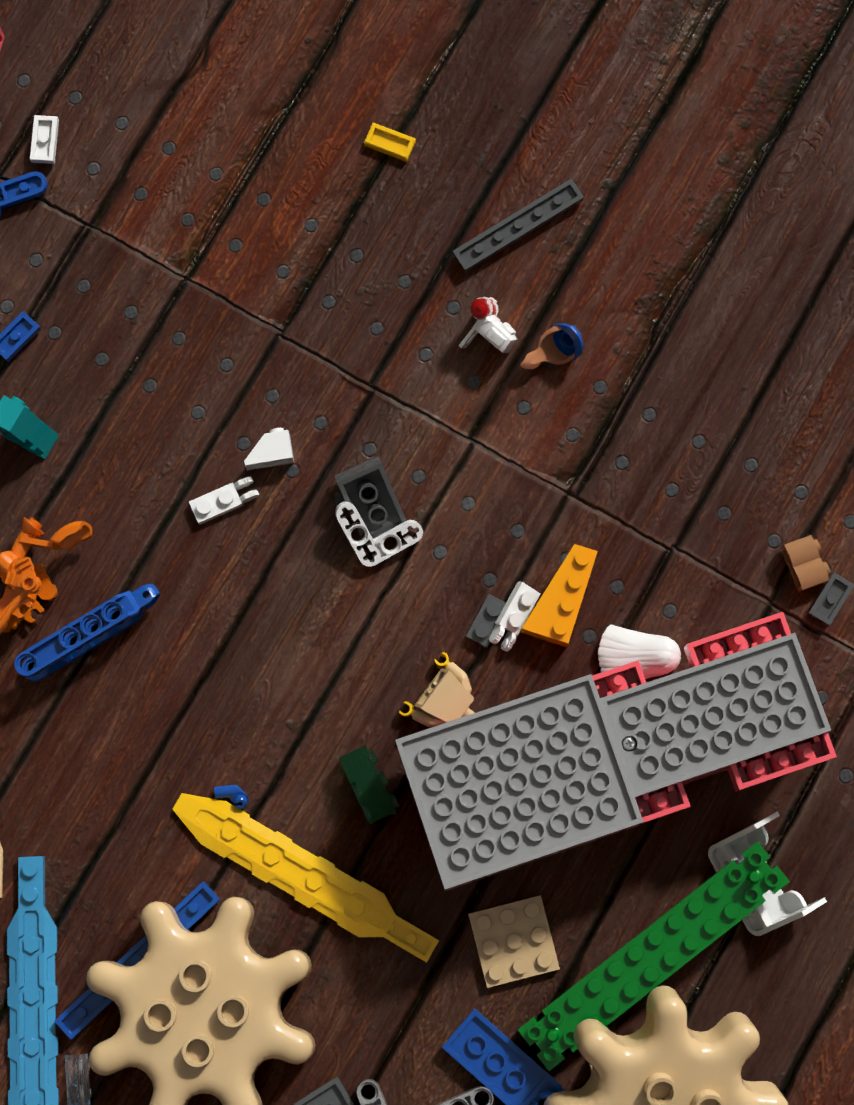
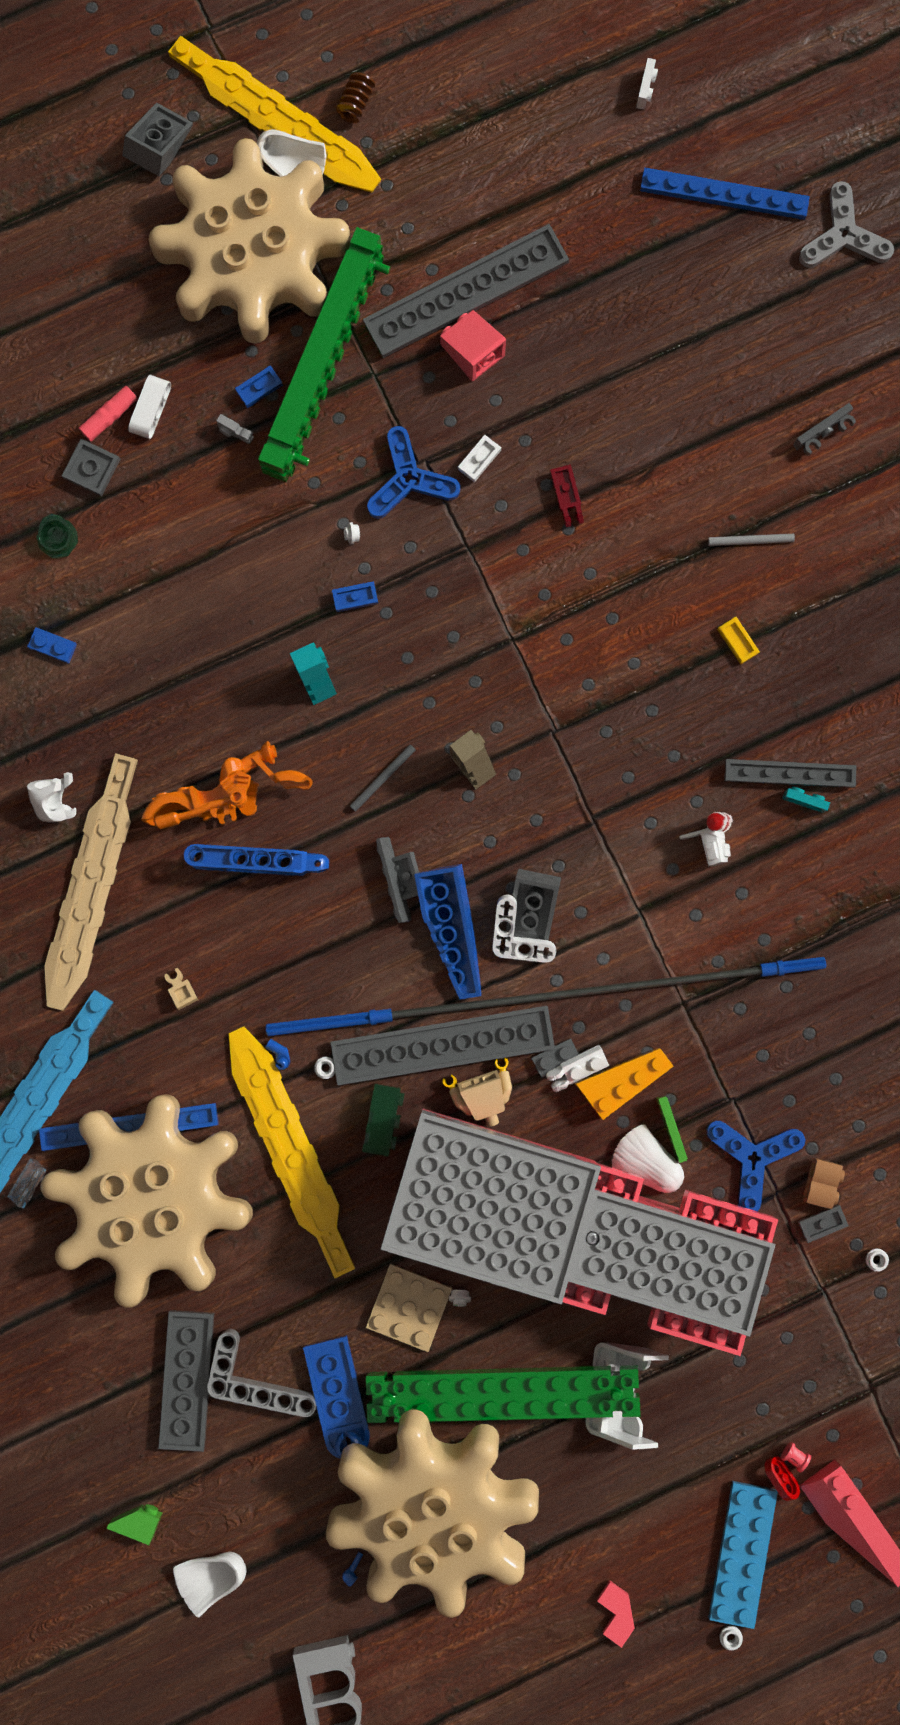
camera: 30 degrees right, 5 degrees up
(101, 802) = (181, 992): none -> tan plate
(145, 117) = (566, 493): none -> dark red hinge
(153, 480) = (369, 791): none -> dark grey bar
(221, 500) = (421, 828): white hinge -> none
(222, 404) = (472, 758): none -> dark tan wedge
(232, 555) = (400, 877): none -> dark grey bracket
(271, 450) = (485, 817): white slope -> none
(276, 777) = (318, 1067): none -> white plate
(304, 692) = (387, 1015): none -> axle
(306, 566) = (449, 919): none -> blue wedge
(339, 47) = (753, 539): none -> light grey bar
(376, 681) = (442, 1045): none -> dark grey plate
(553, 898) = (459, 1297): none -> white plate
(556, 346) = (753, 887): piece -> none
(558, 235) = (813, 802): none -> teal plate
(636, 610) = (672, 1129): none -> bright green tile
(710, 583) = (768, 1151): none -> blue piece

